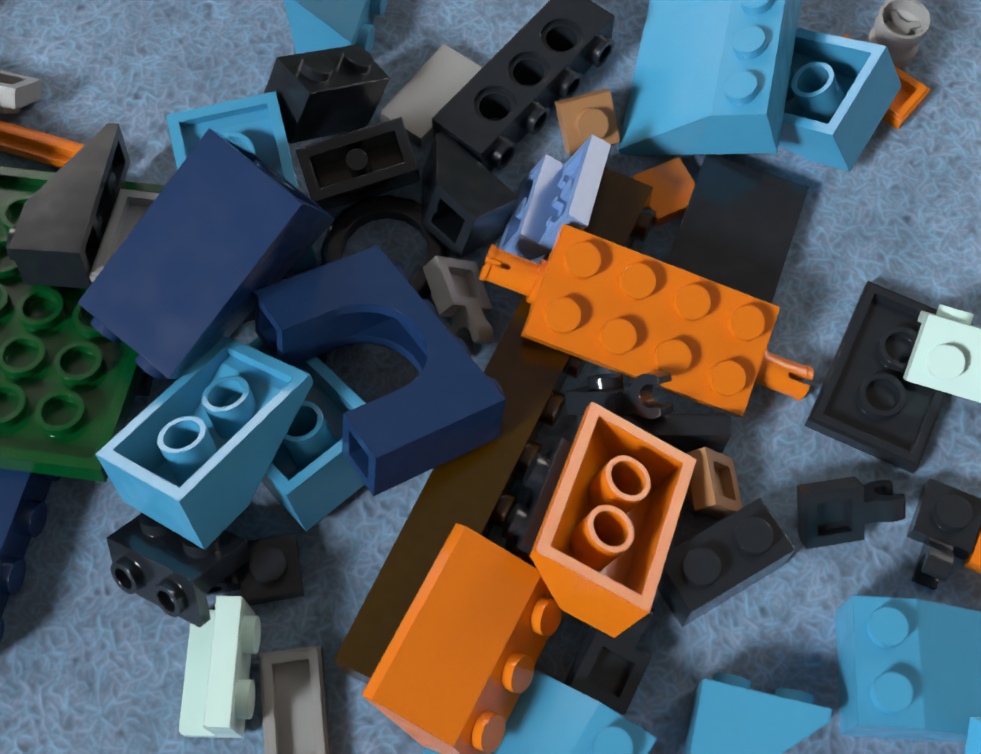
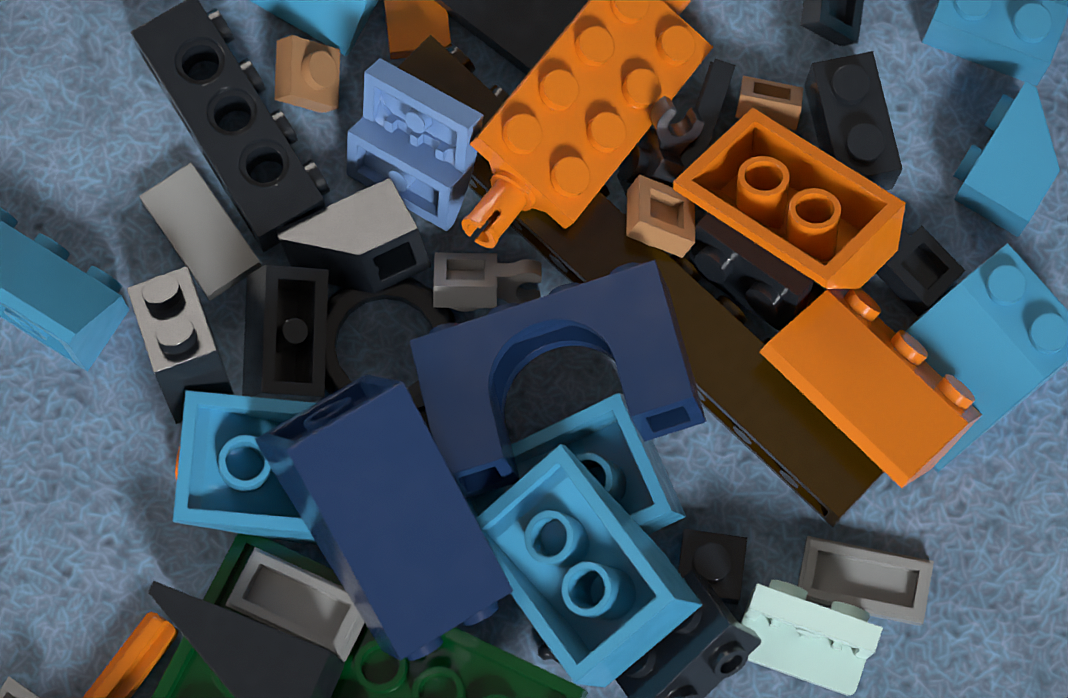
camera: 75 degrees left, 10 degrees up
(557, 407) = (660, 216): none -> medium nougat plate

